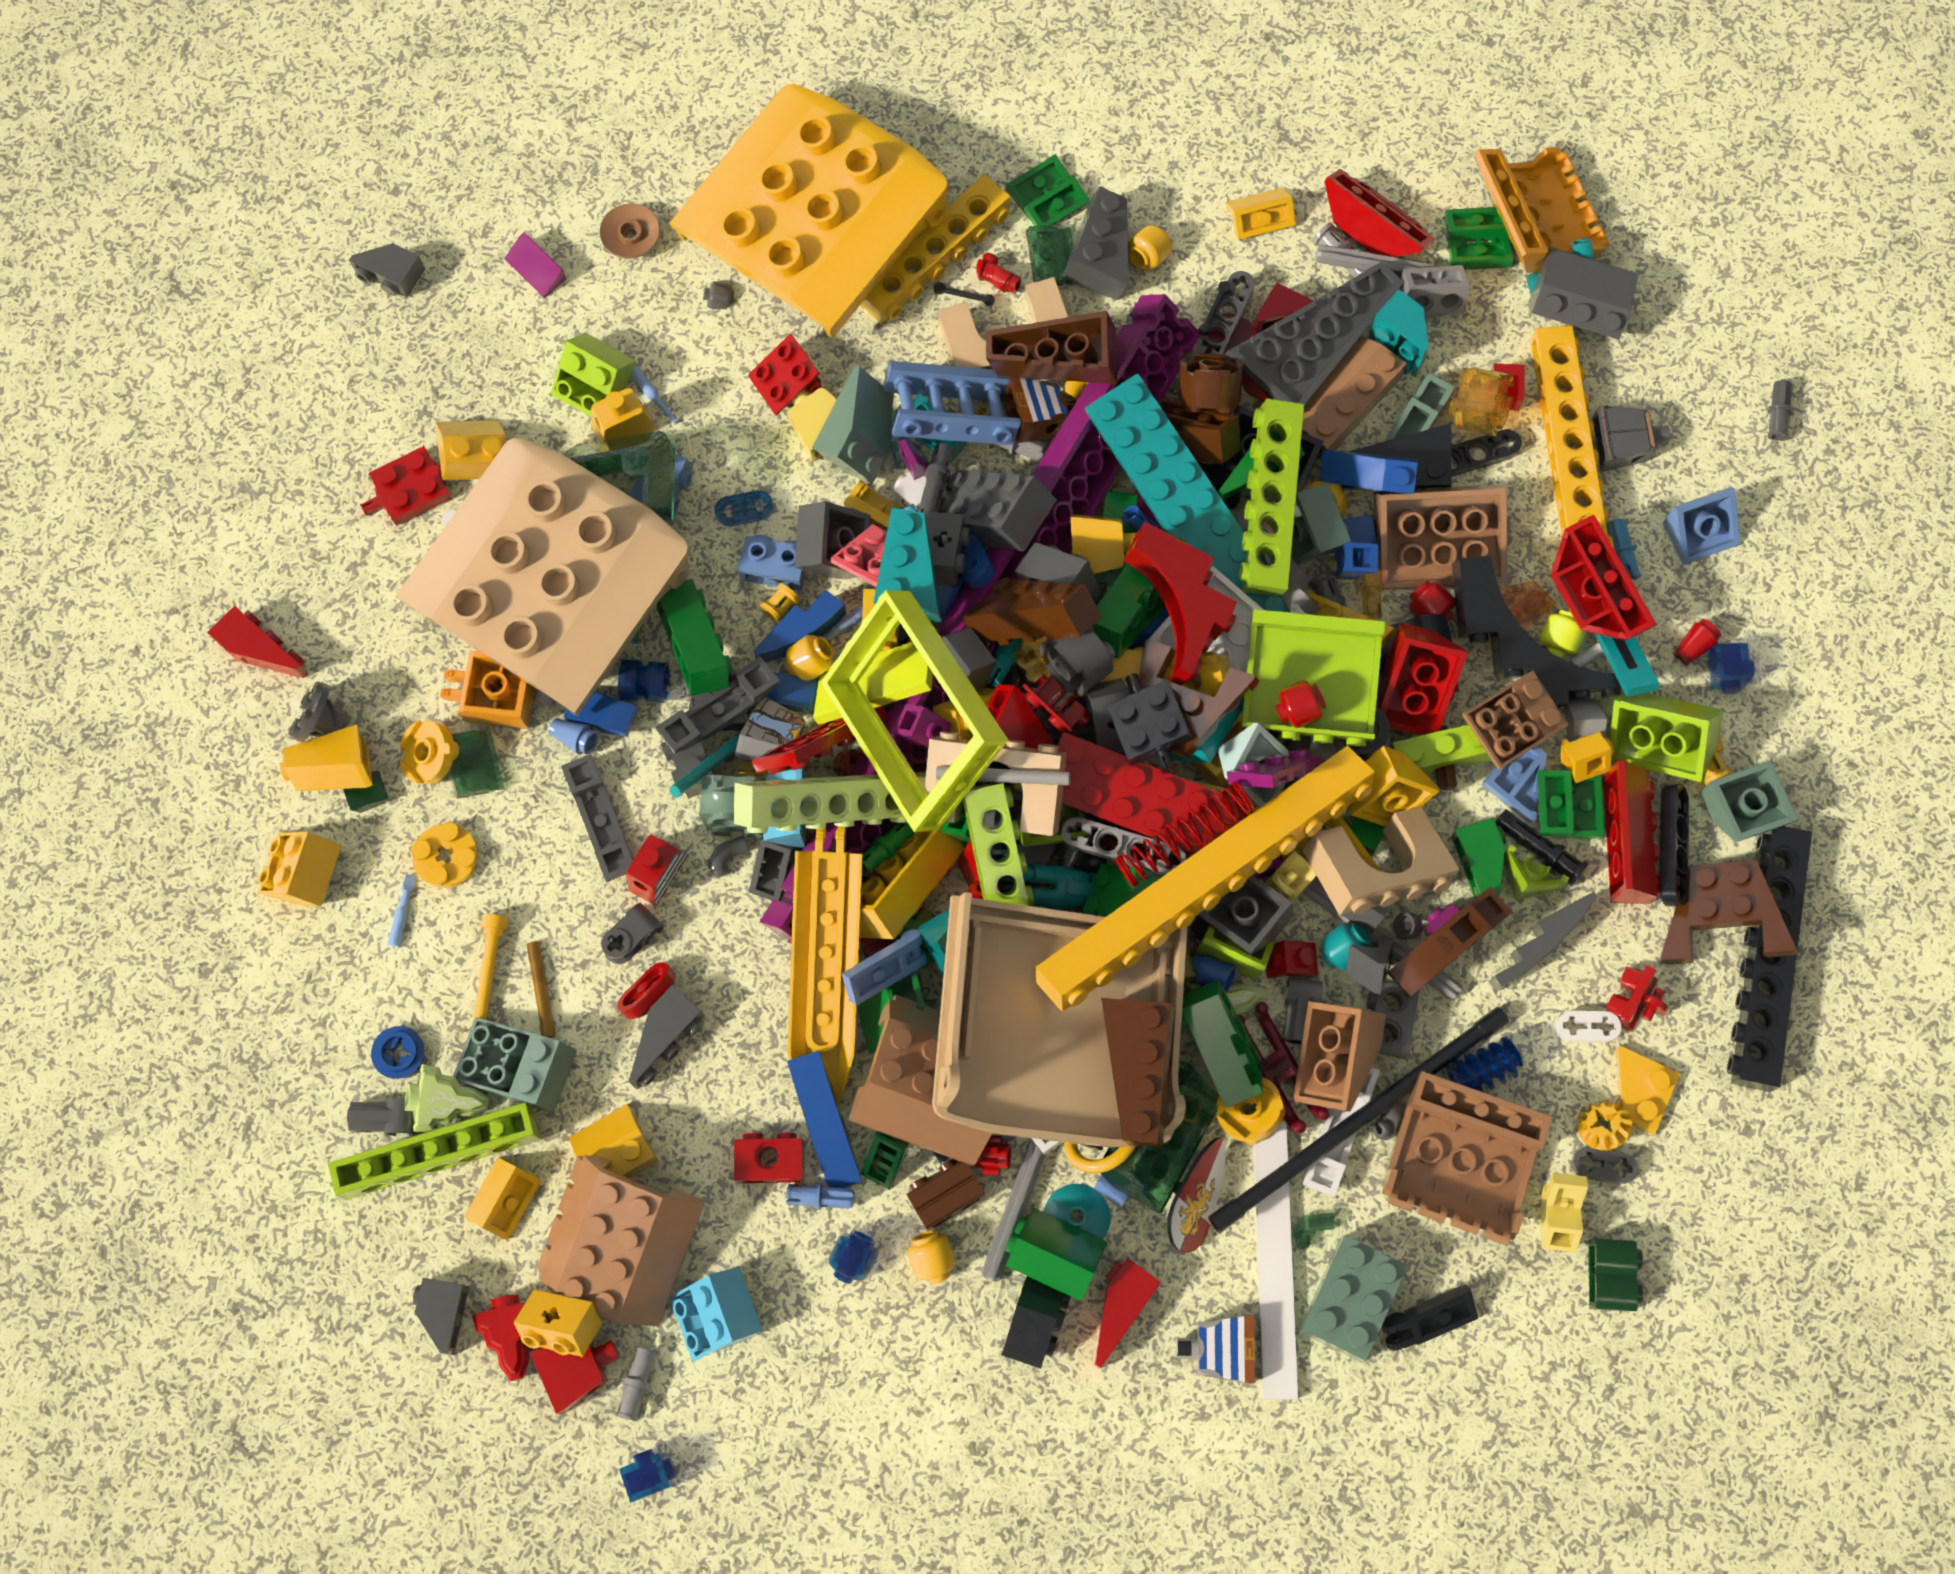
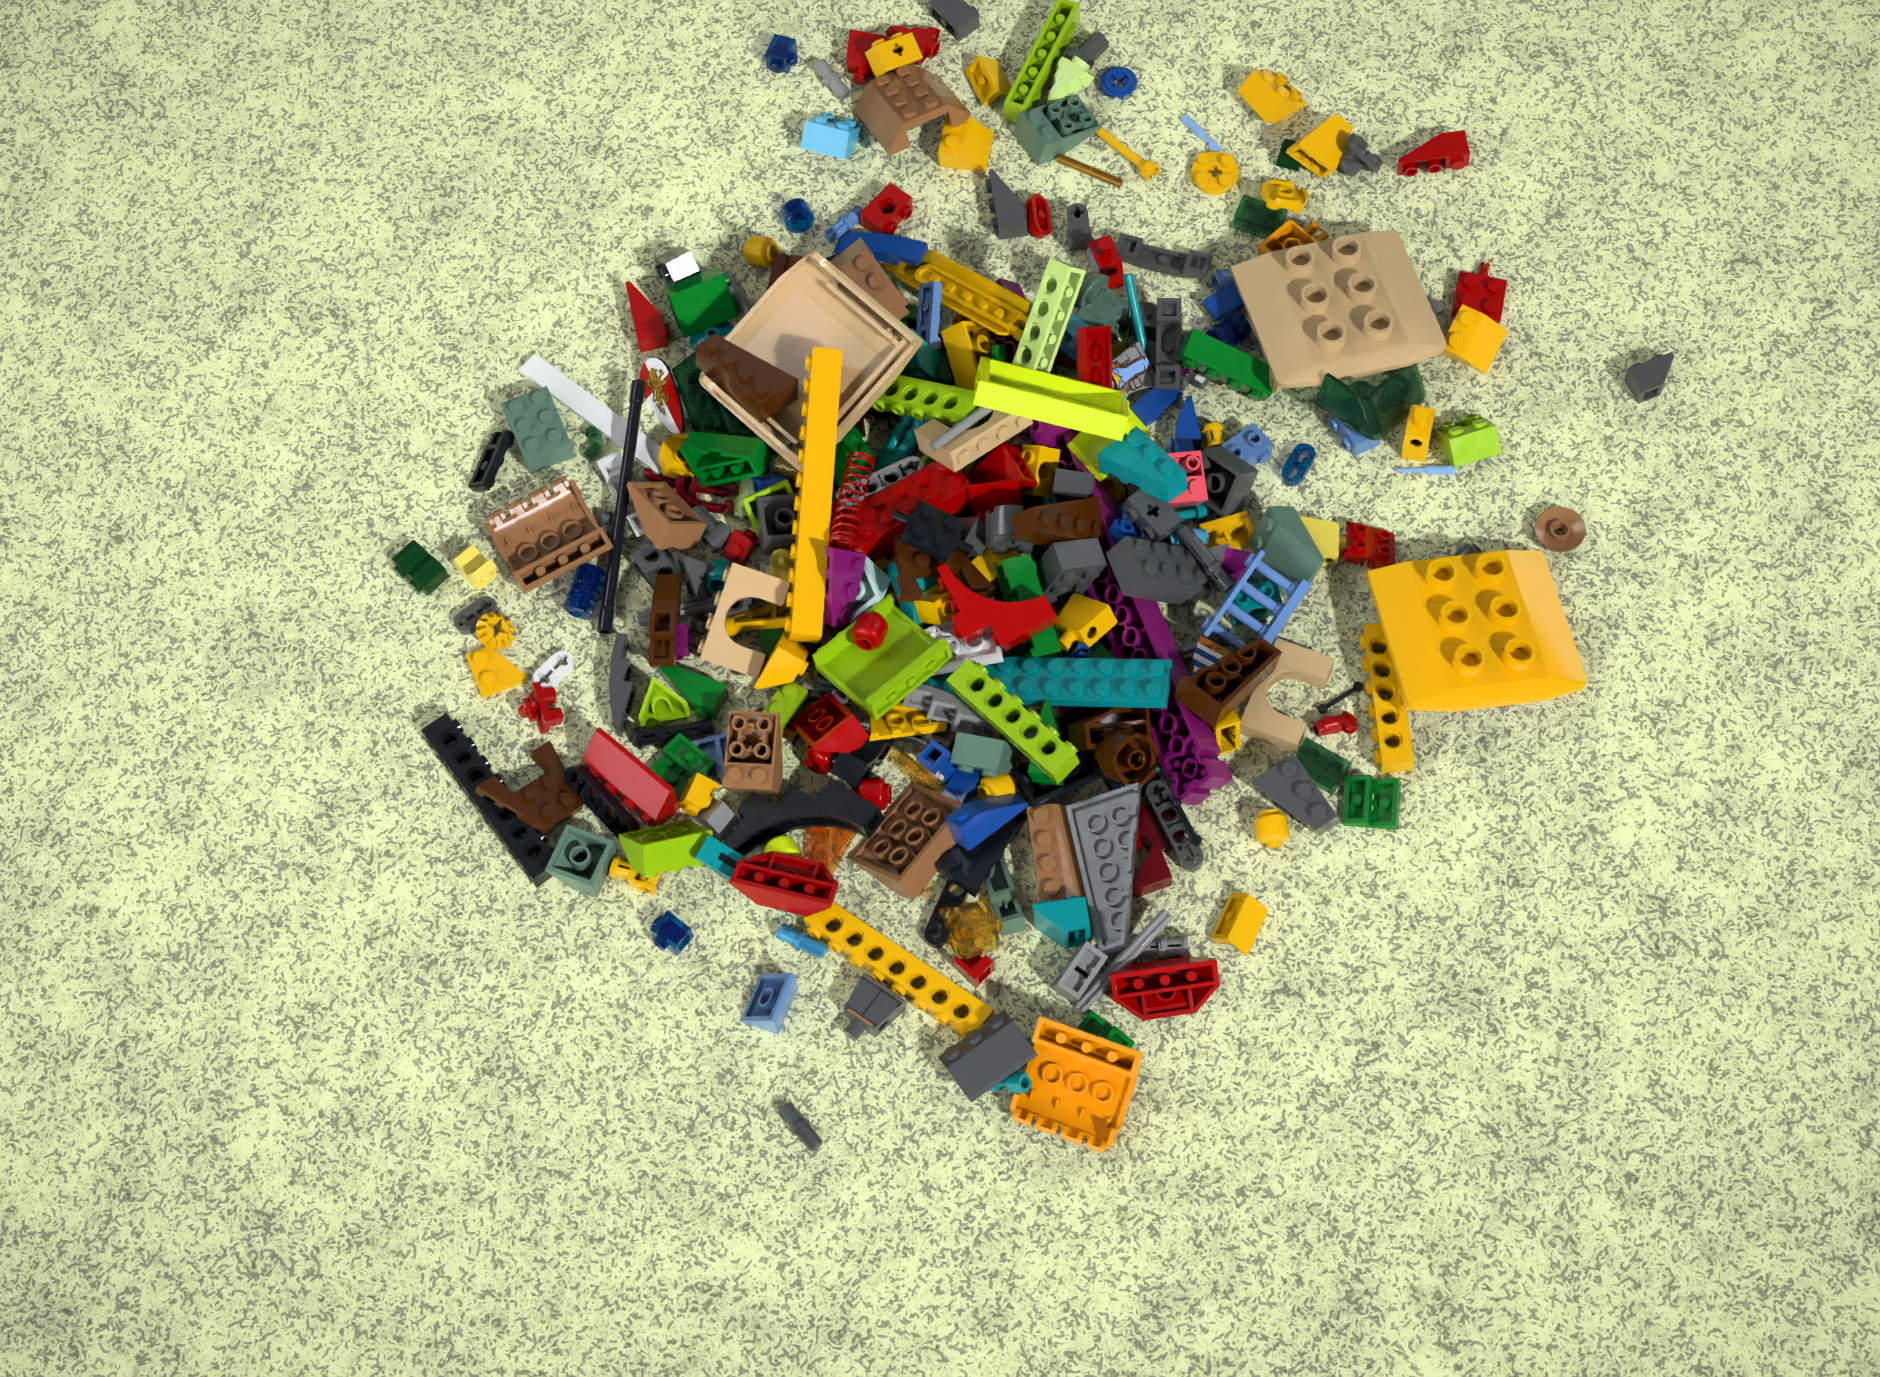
camera: 135 degrees right, 10 degrees down
(535, 265) = (1583, 464): magenta slope -> none
(809, 657) = (1161, 425): yellow head -> none
(1222, 1349) = (577, 351): torso -> none
(1697, 641) = (704, 931): red cone -> none

